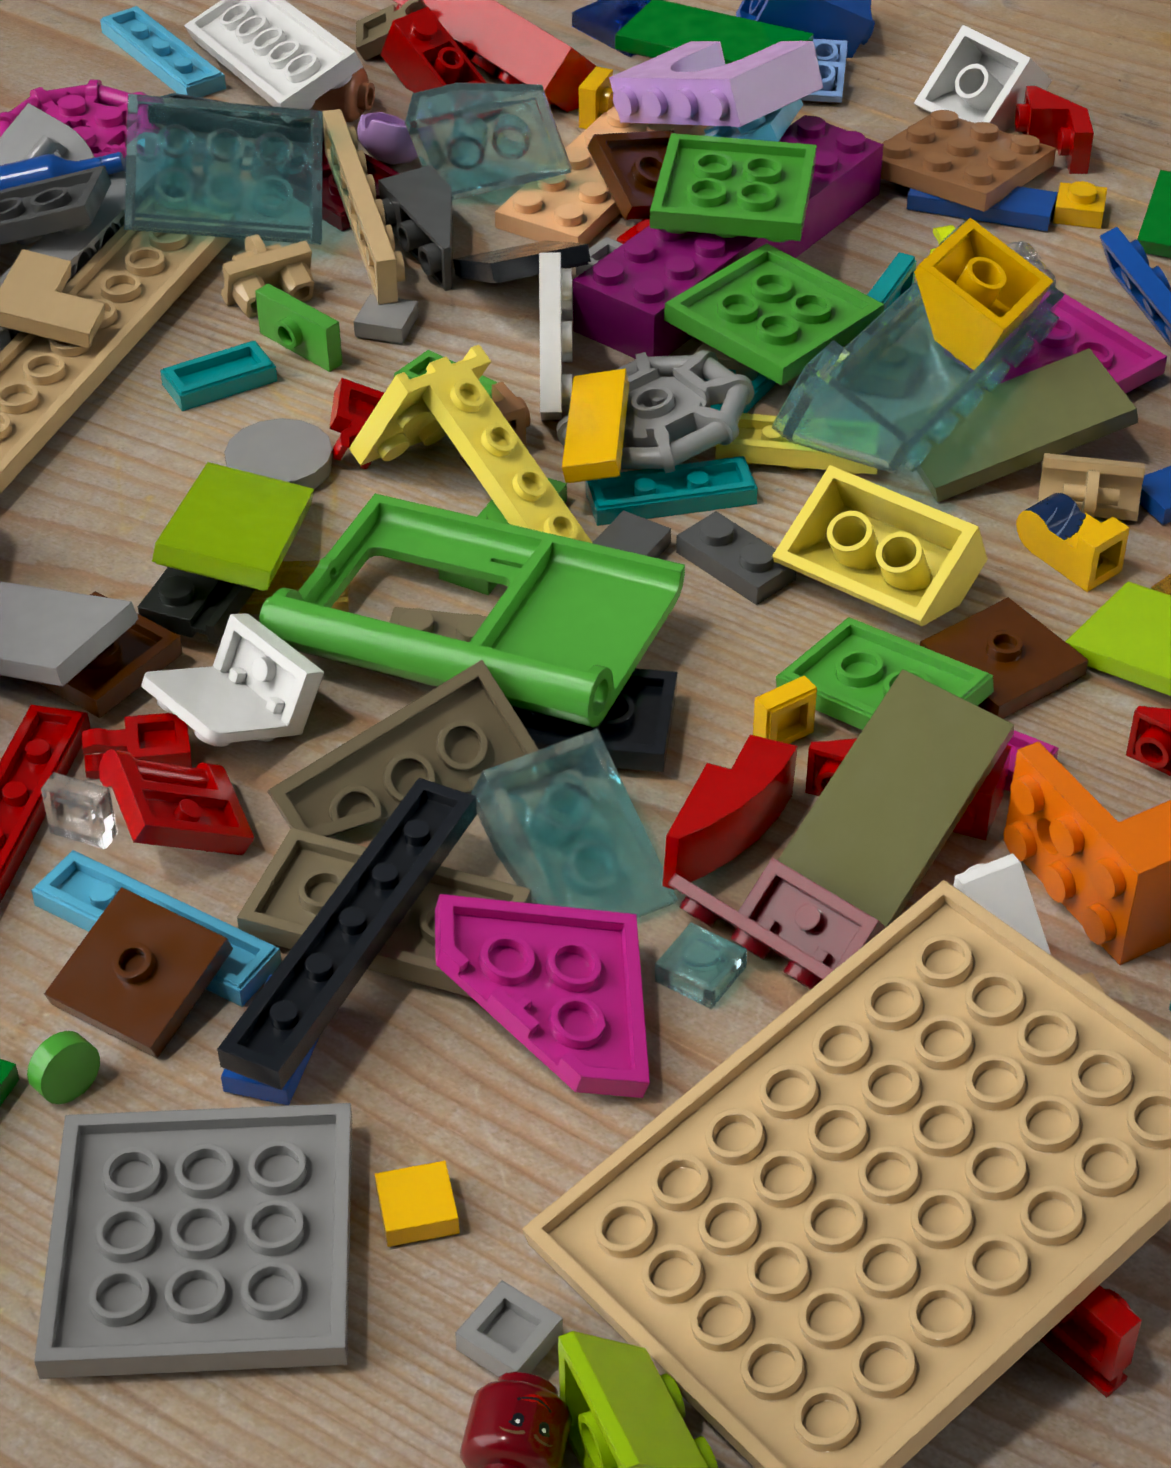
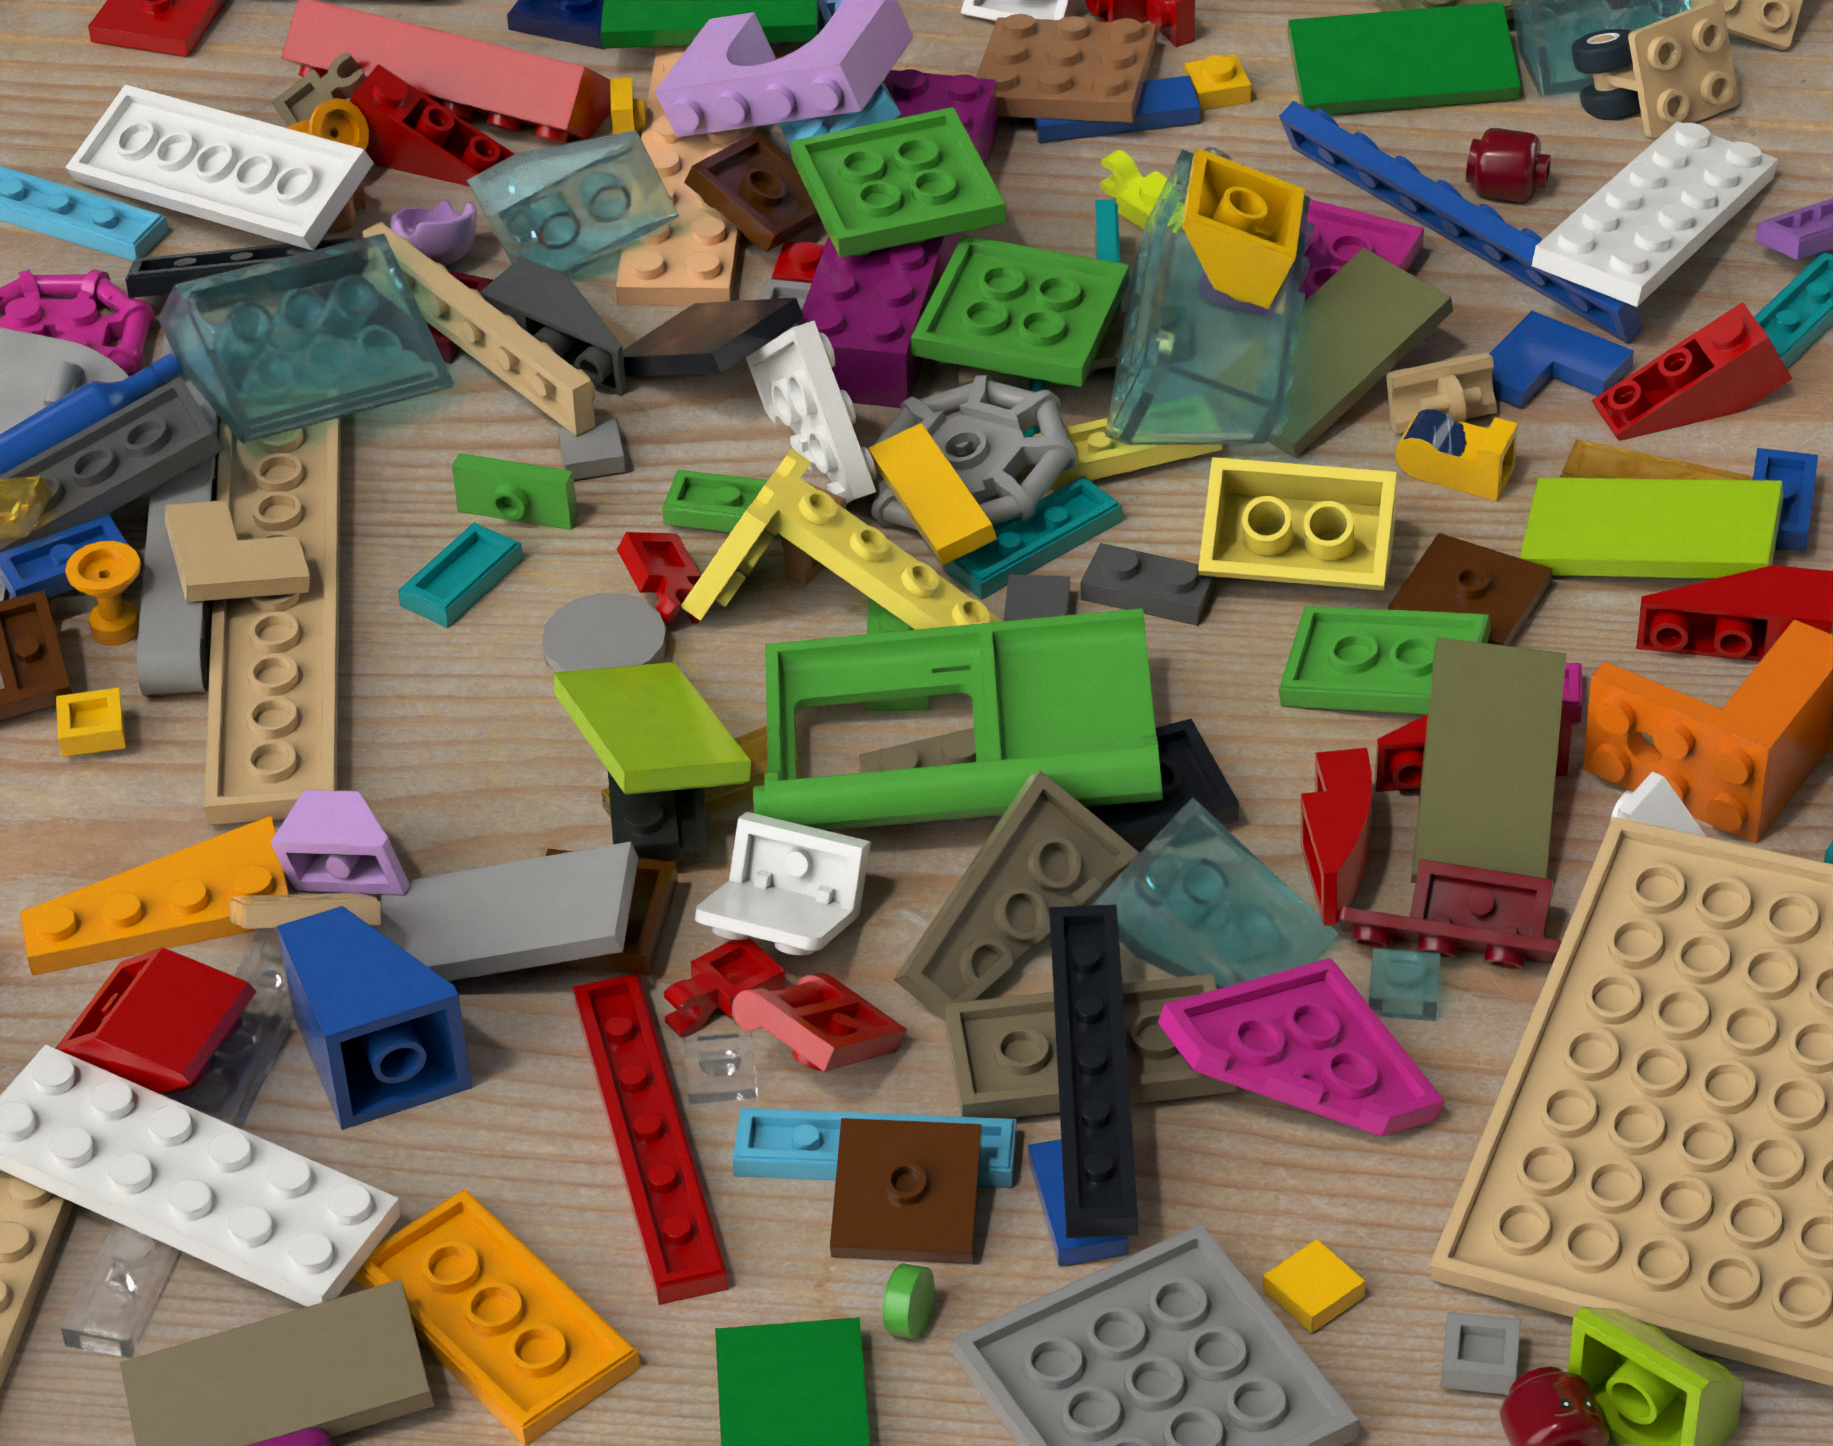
camera: 25 degrees left, 0 degrees up
(280, 266) = (420, 437): tan hips -> none
(373, 44) = (338, 122): none -> light orange piece
(786, 711) = (1318, 722): yellow tile -> none

